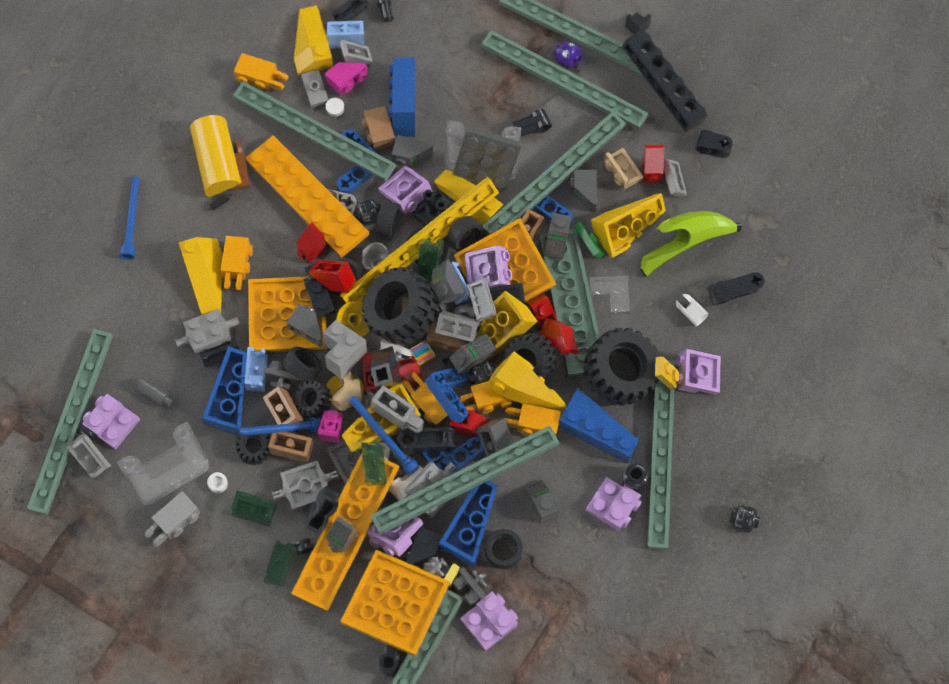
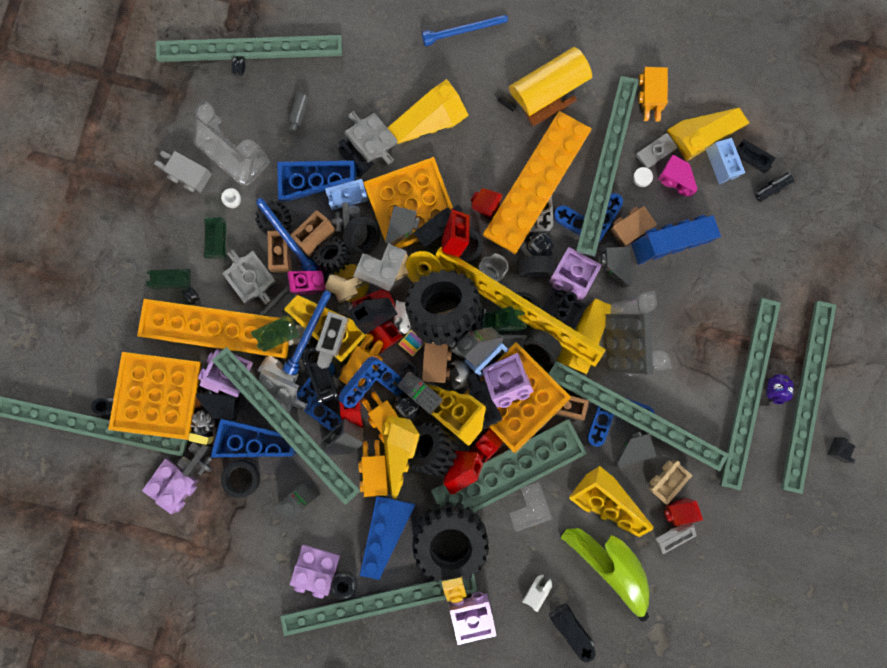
camera: 75 degrees right, 15 degrees up
(88, 455) = (219, 75): light grey hinge -> none
(110, 421) = (260, 82): lavender plate -> none
(235, 260) = (448, 139): light orange hinge -> none
(322, 509) = (224, 300): black brick -> none
(341, 535) = (200, 327): dark grey slope -> none
(355, 53) = (707, 177): light grey slope -> none
(457, 326) = (440, 369): light grey hinge -> none
(481, 299) = (471, 385): light grey plate -> none
(537, 121) = (692, 380): black piece -> none
(557, 236) = (569, 438): dark grey slope -> none
(590, 240) = (579, 470): green plate -> none
(665, 90) = (771, 500): black brick -> none
(712, 143) = (728, 565): black piece -> none

